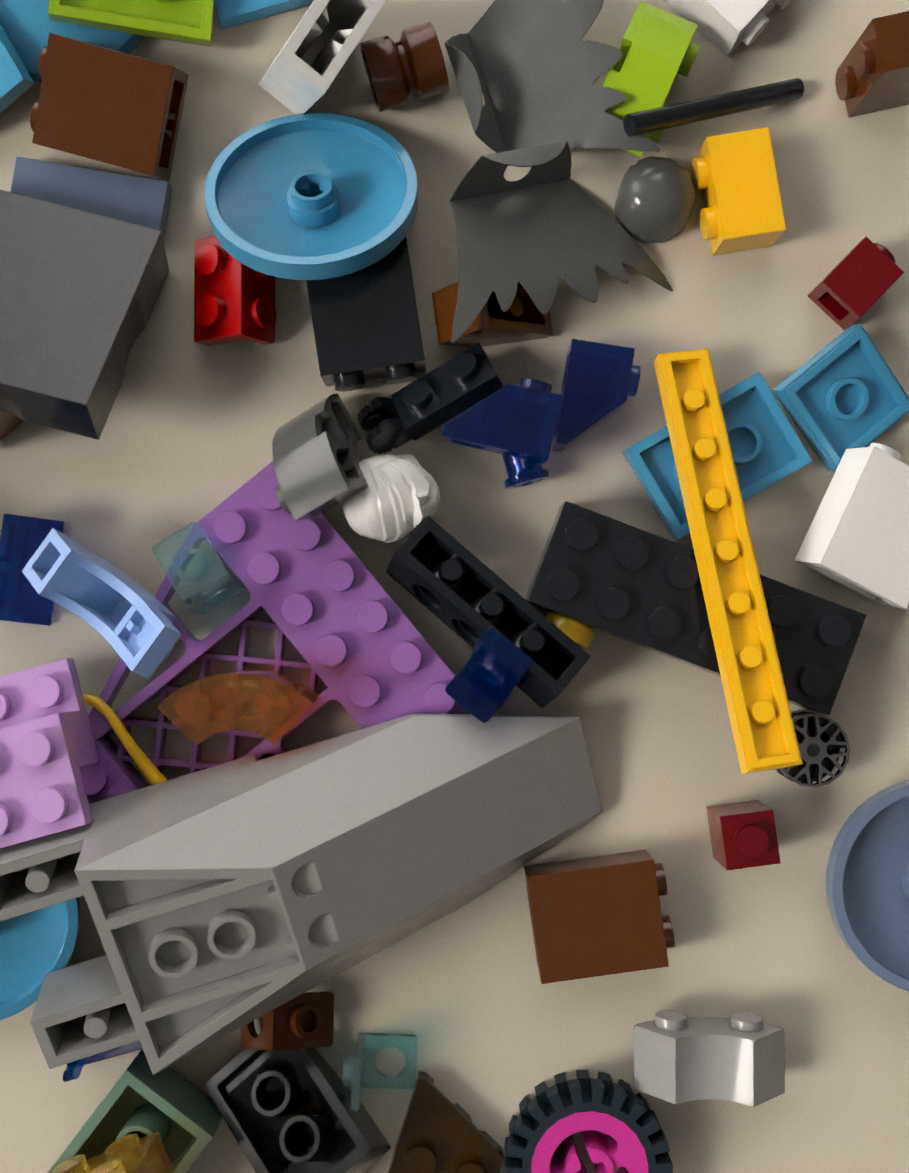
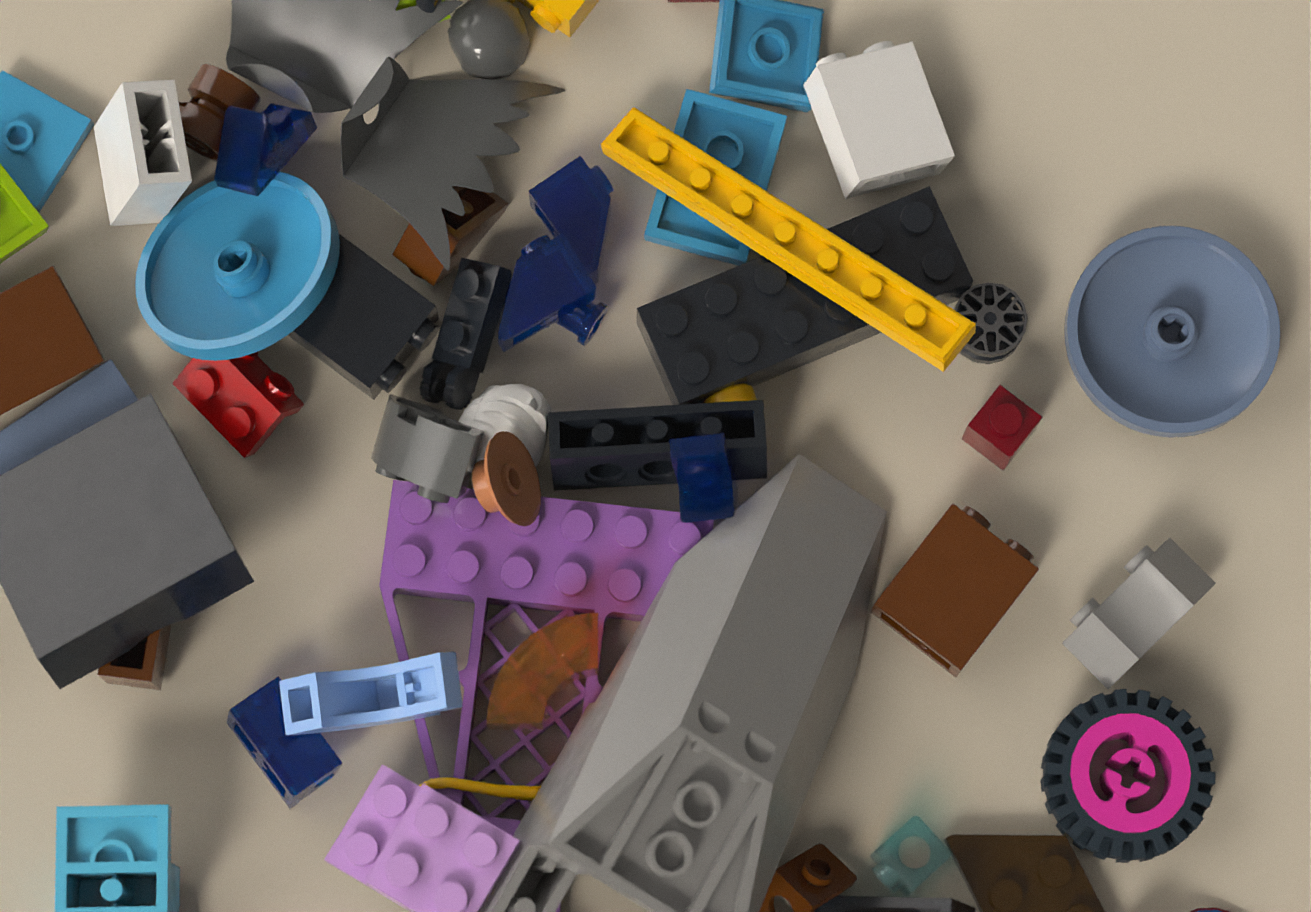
camera: 45 degrees left, 10 degrees down
(196, 570) = (412, 616): clear light blue bracket -> none
(348, 541) = (508, 480): none -> nougat piece
(411, 122) = (259, 145): none -> clear blue slope

